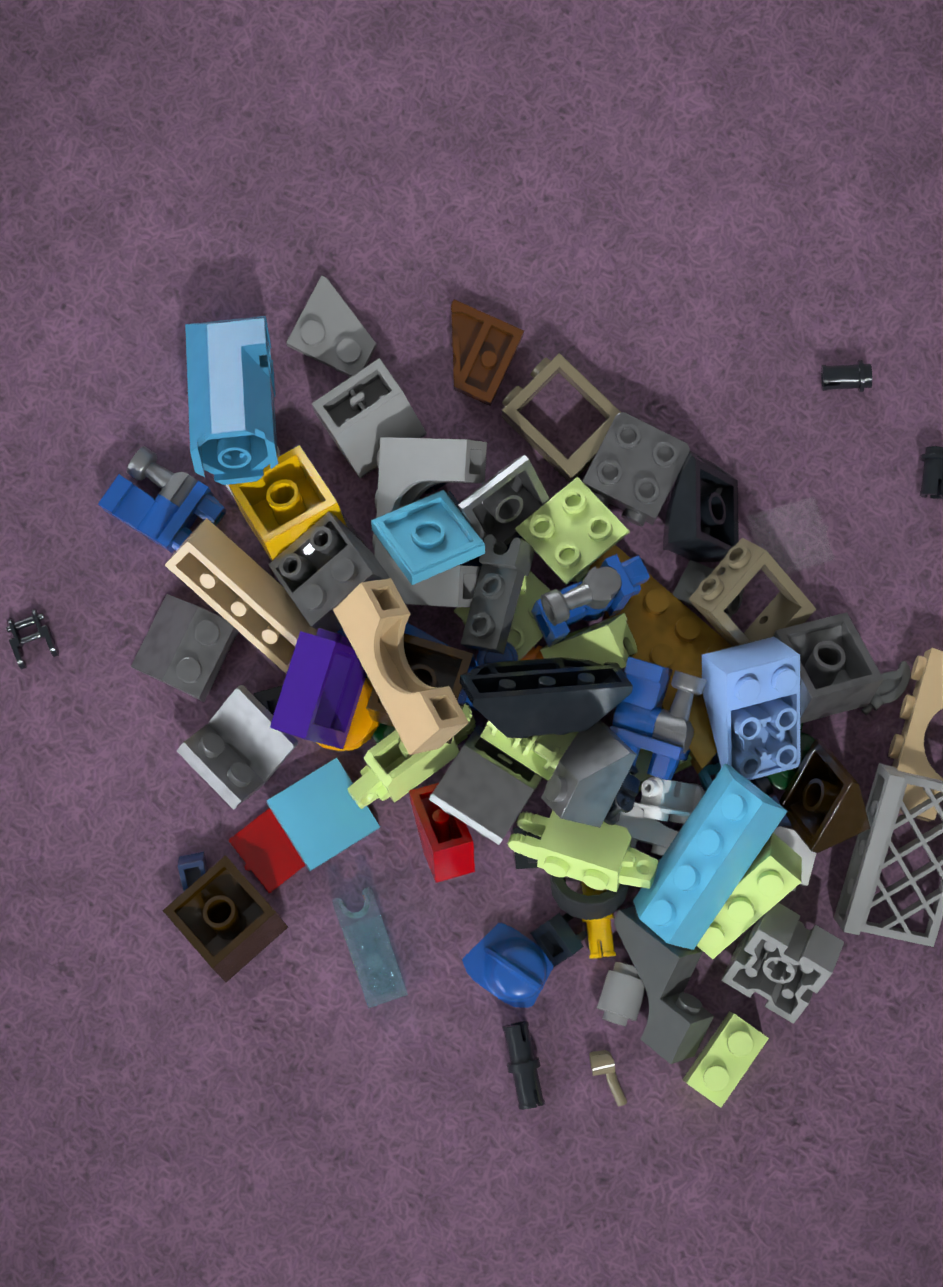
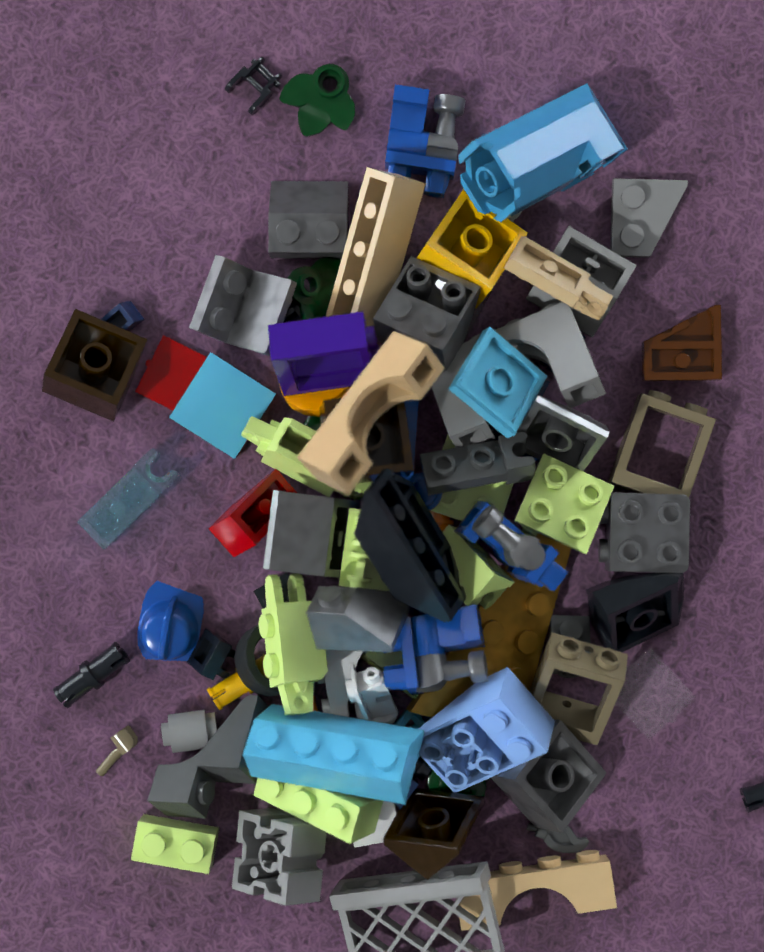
camera: 65 degrees right, 5 degrees up
(80, 587) = (317, 105): none -> dark green plate
(251, 662) = (321, 280): none -> dark green plate
(356, 436) = (558, 278): none -> tan hinge
(625, 797) = (352, 659): black piece -> none

